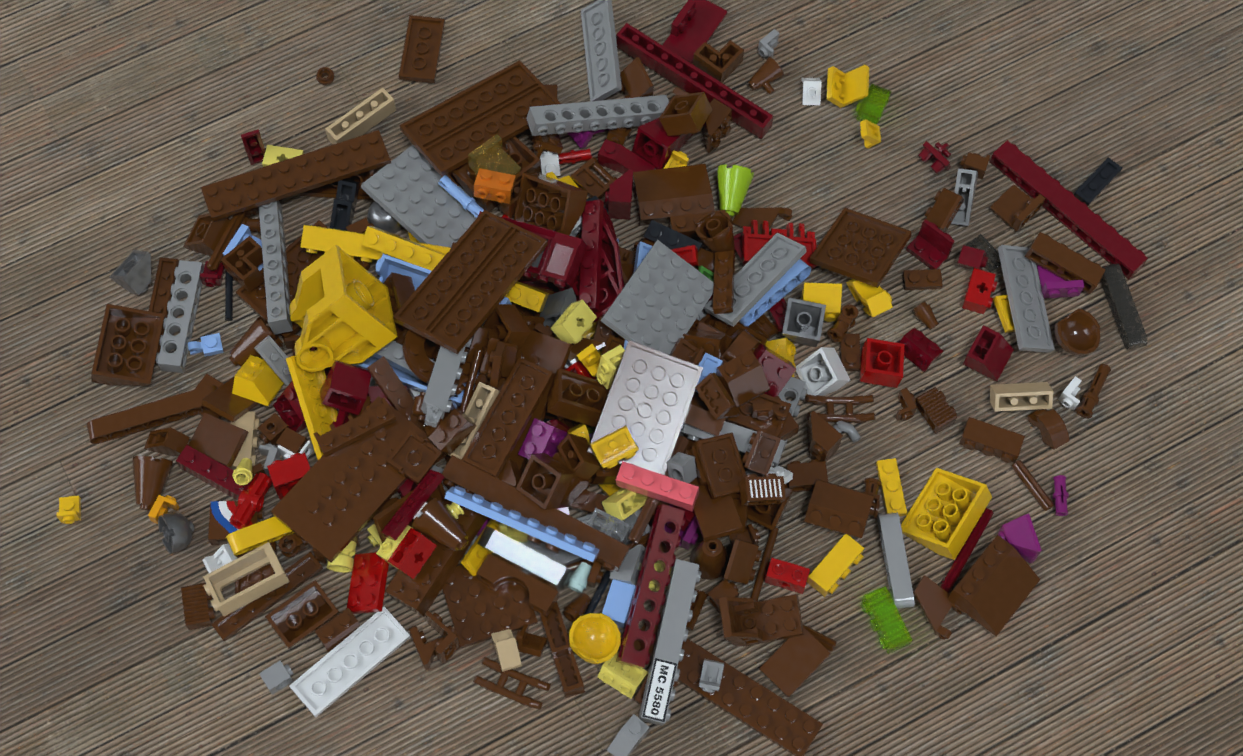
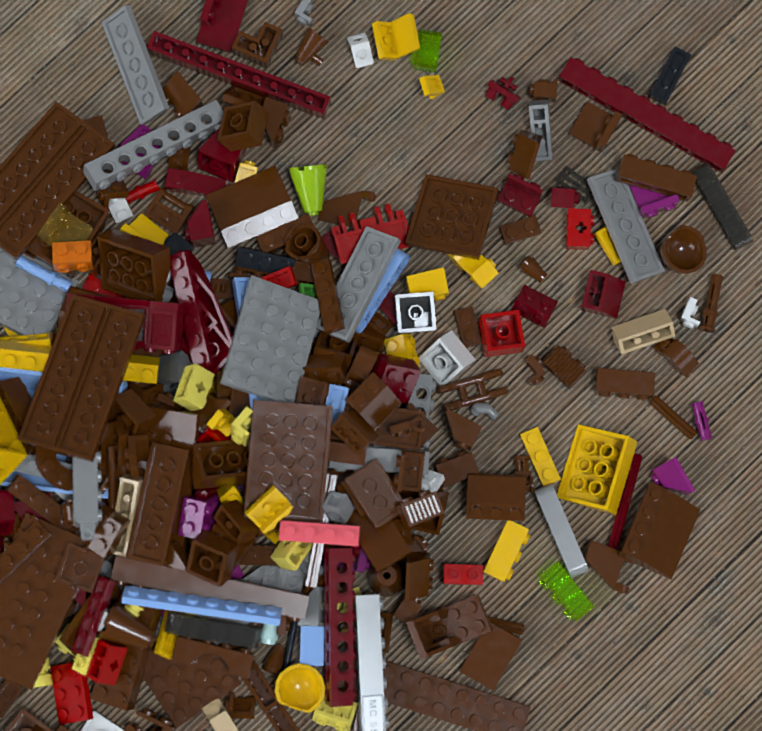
camera: 15 degrees left, 15 degrees up
(711, 675) = (417, 694): light grey bracket -> none
(764, 564) = (438, 569): reddish brown bar -> none
(844, 322) = (454, 301): reddish brown connector -> none

